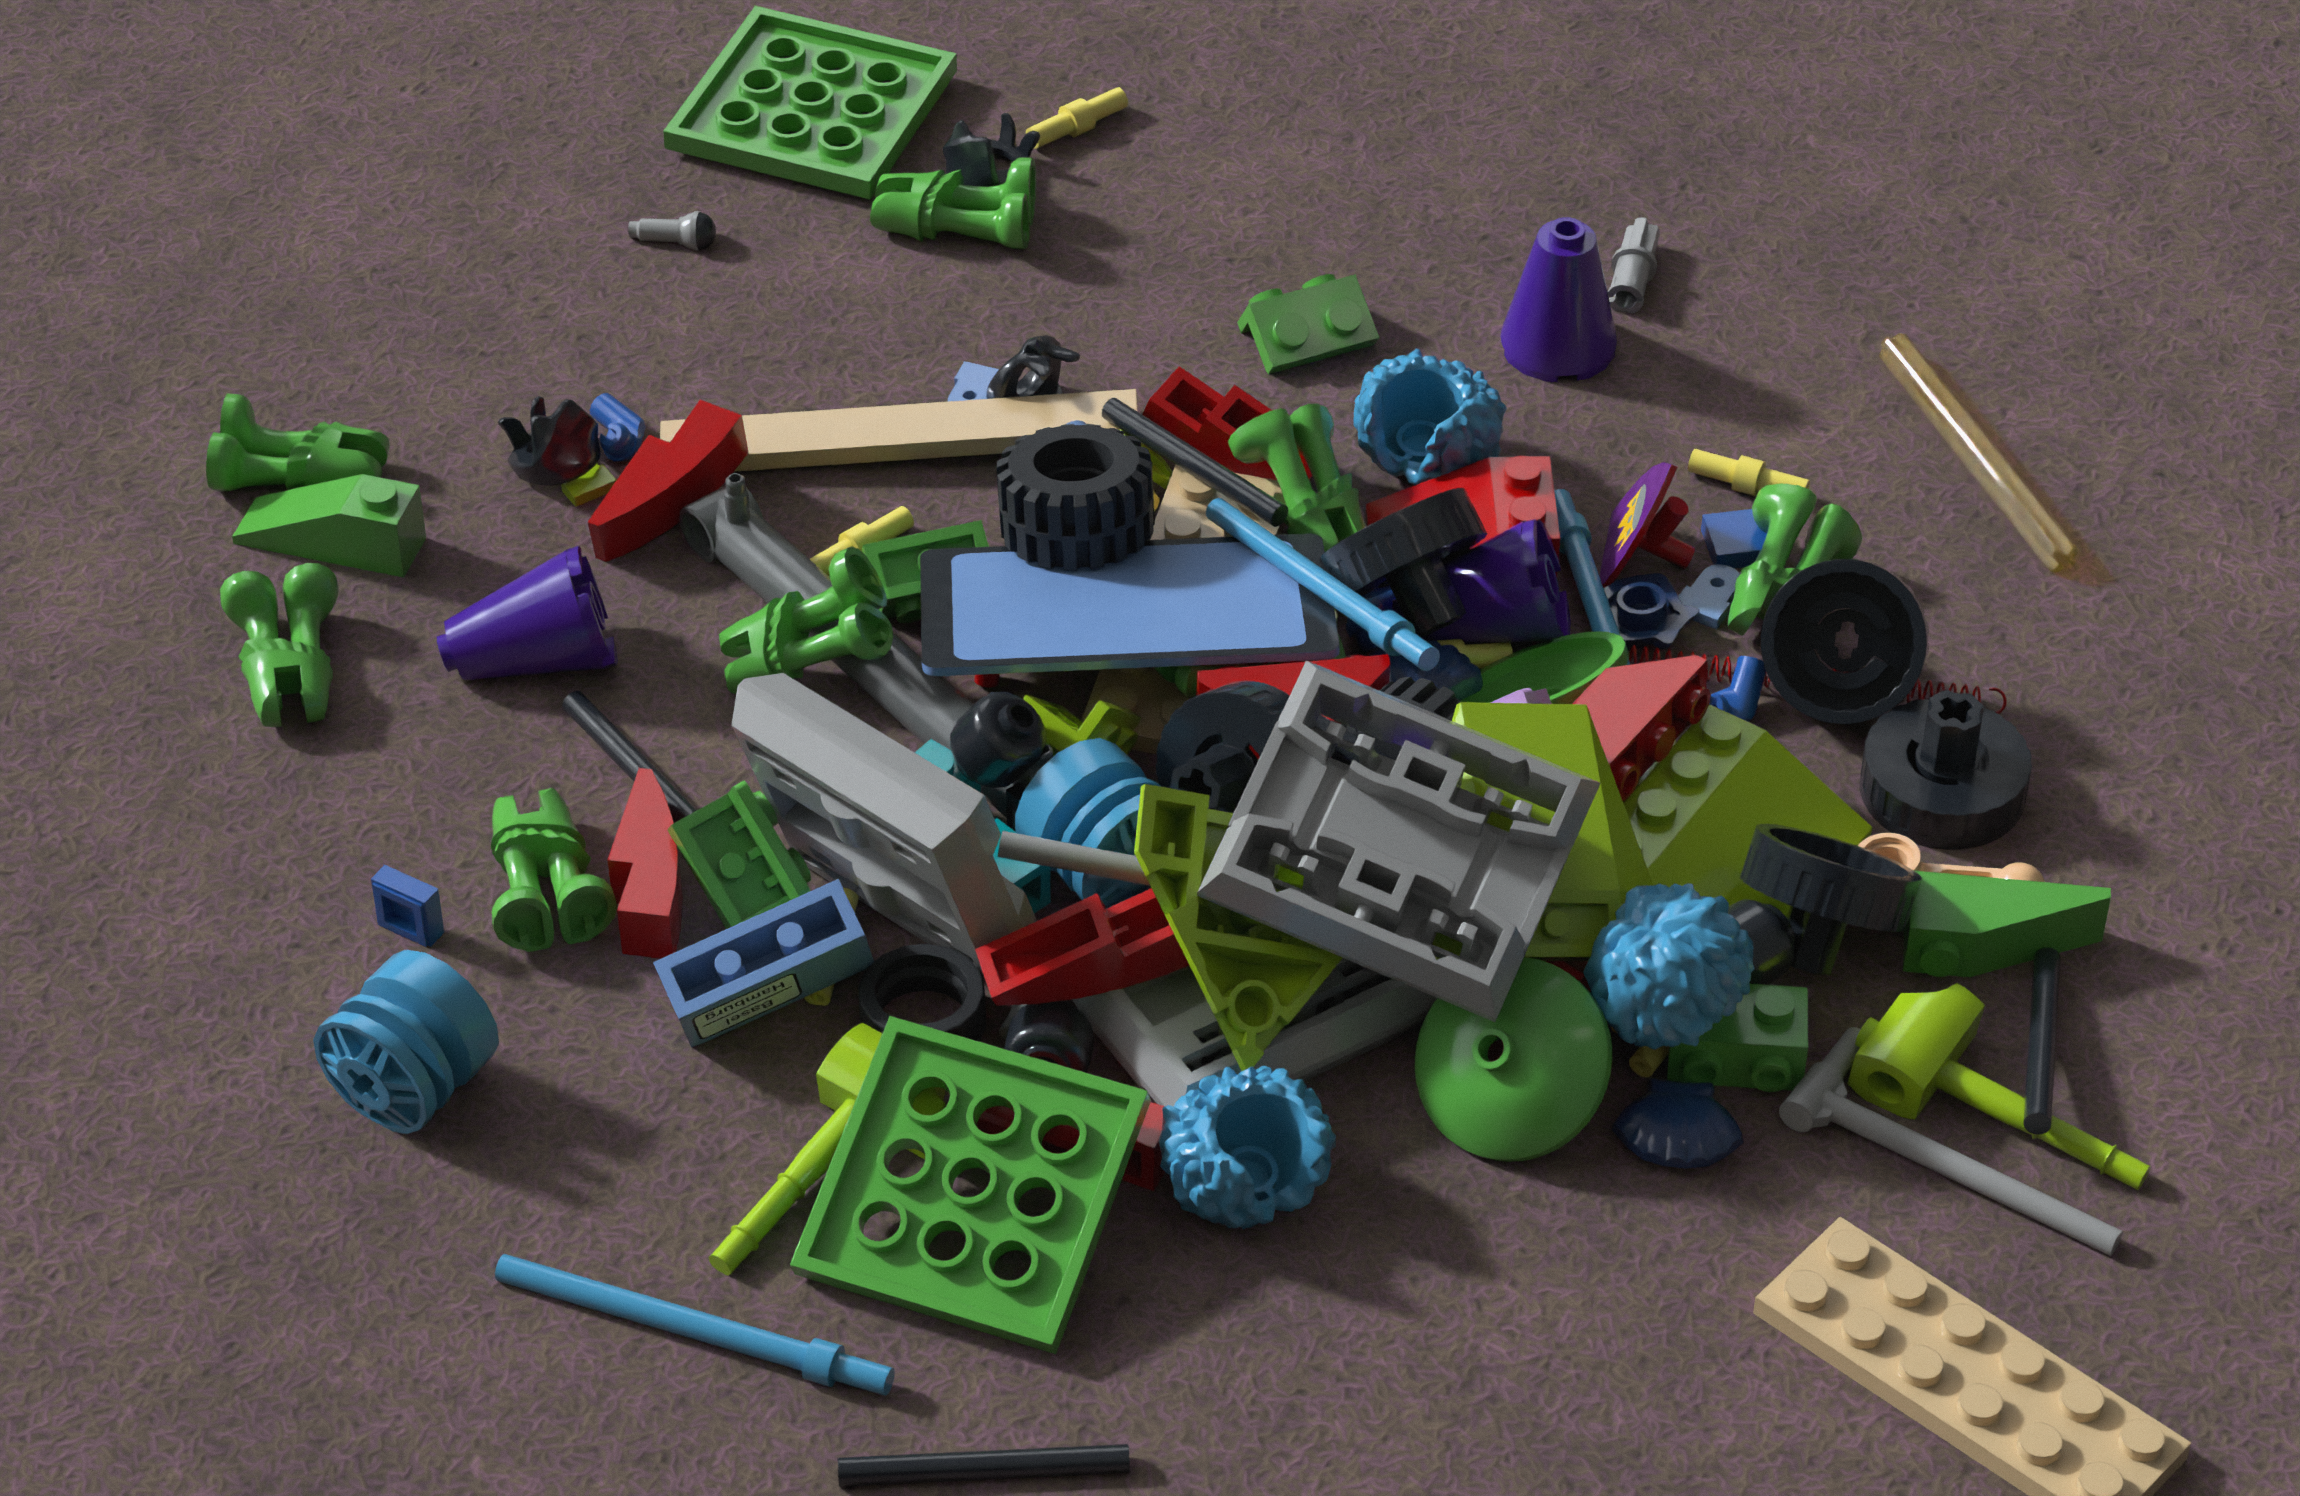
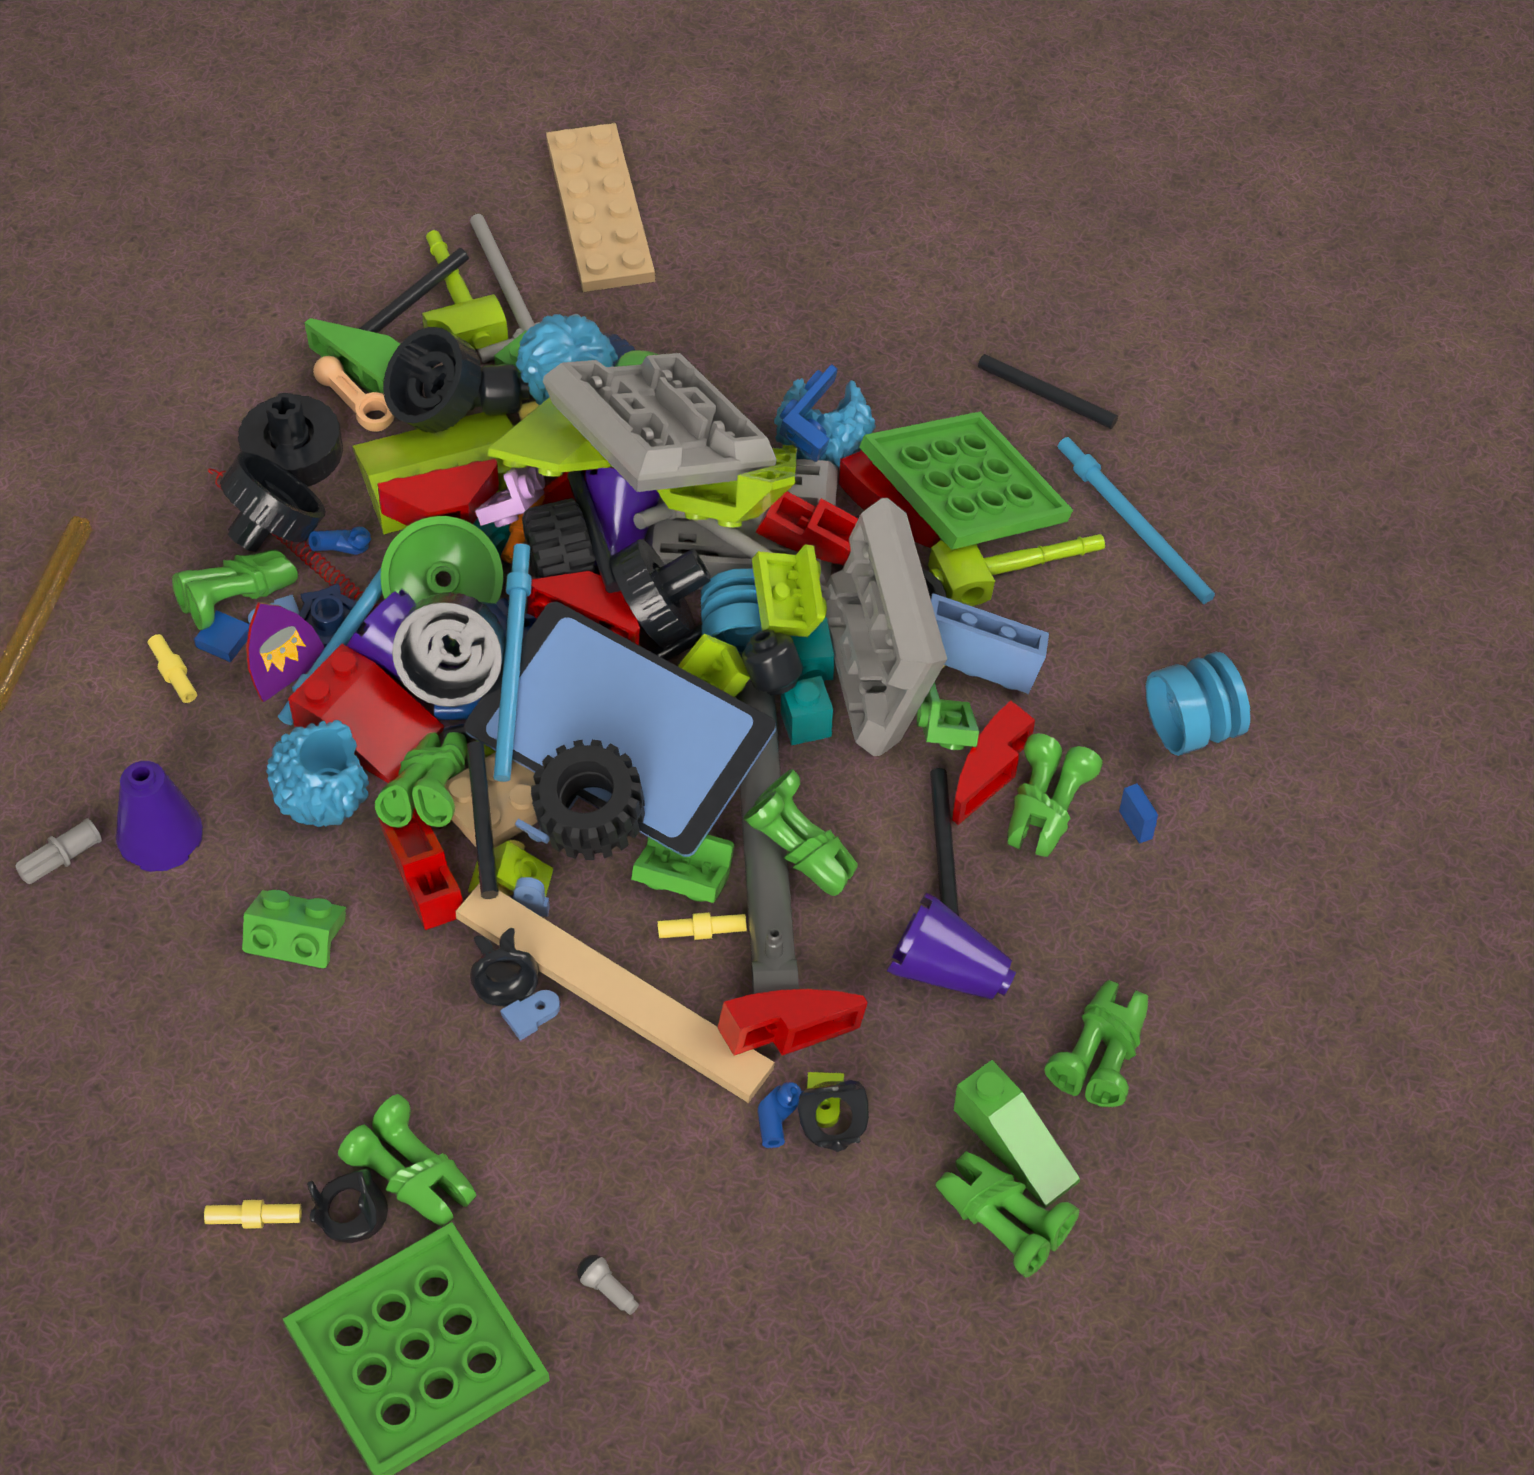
camera: 145 degrees left, 10 degrees up
(1044, 789) = (789, 591): none -> lime bracket
(1235, 1033) = (803, 433): none -> blue bracket

